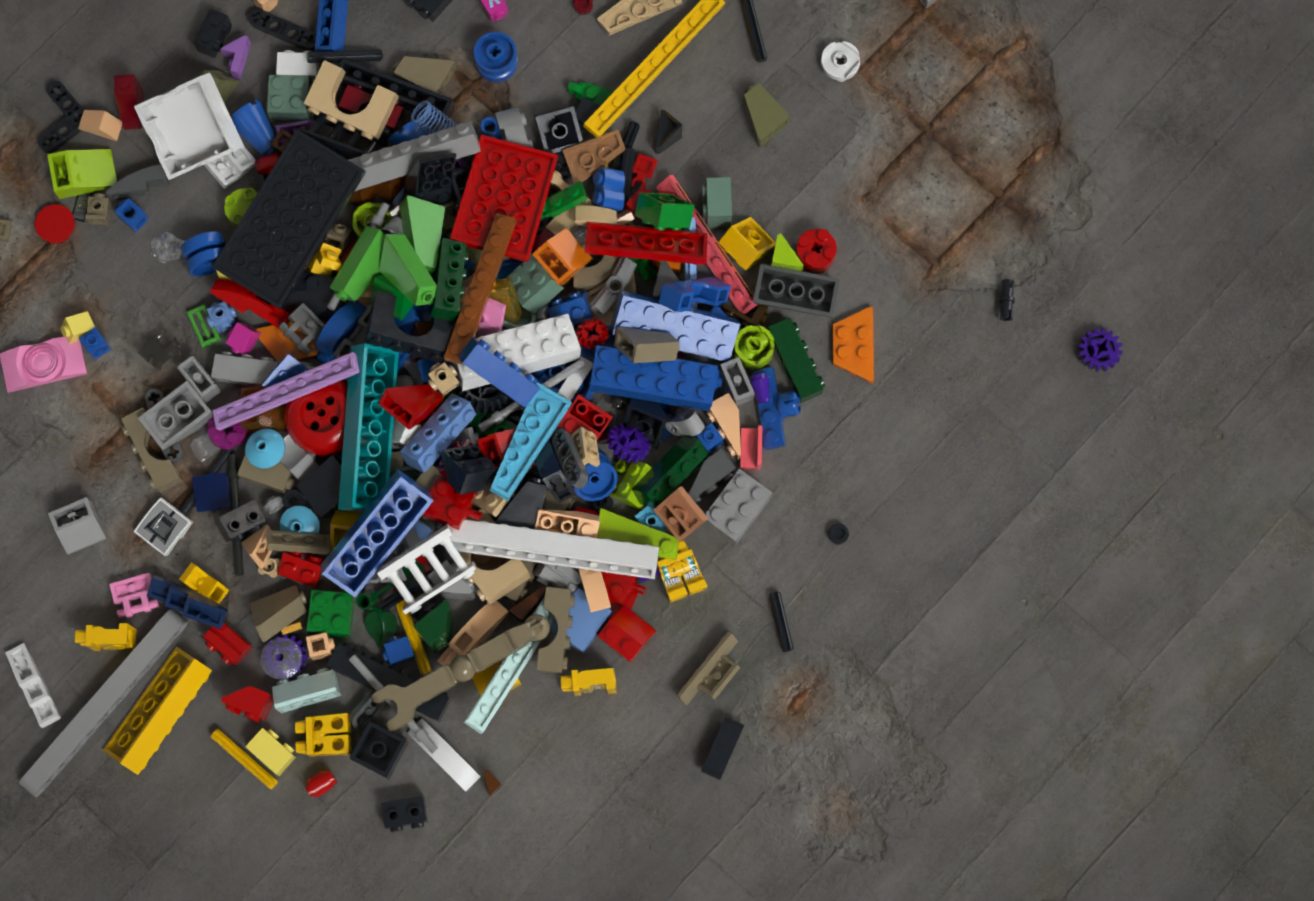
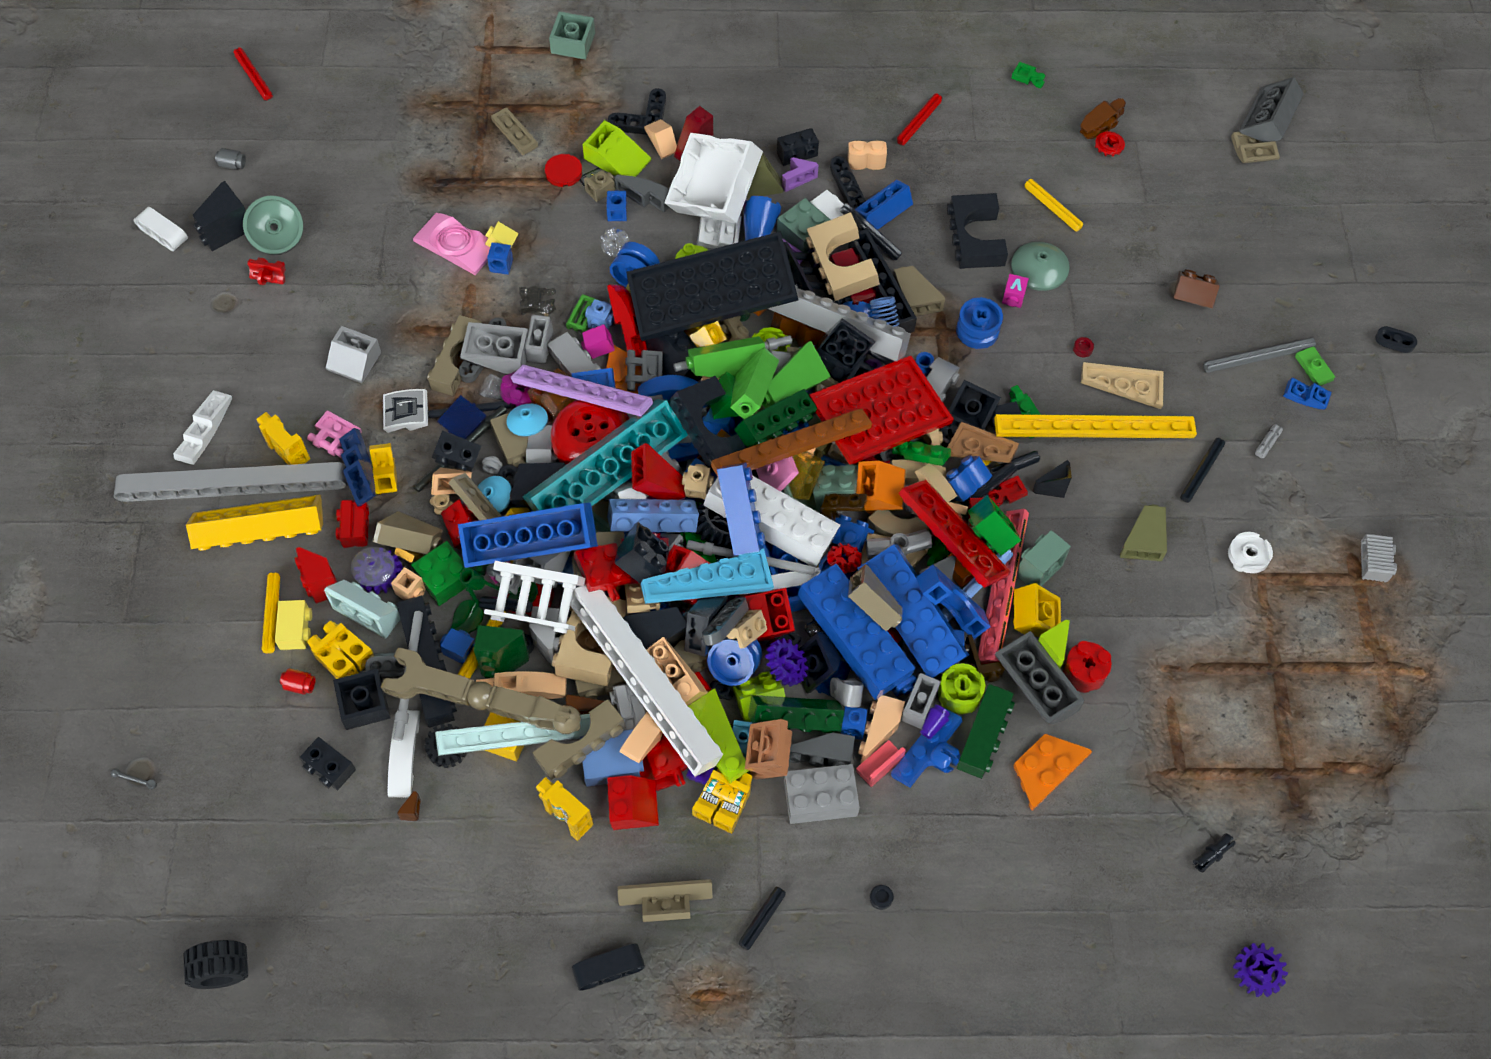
camera: 45 degrees right, 15 degrees down
(453, 723) = (432, 752): none -> black tyre
(552, 296) = (842, 502): none -> dark brown bracket

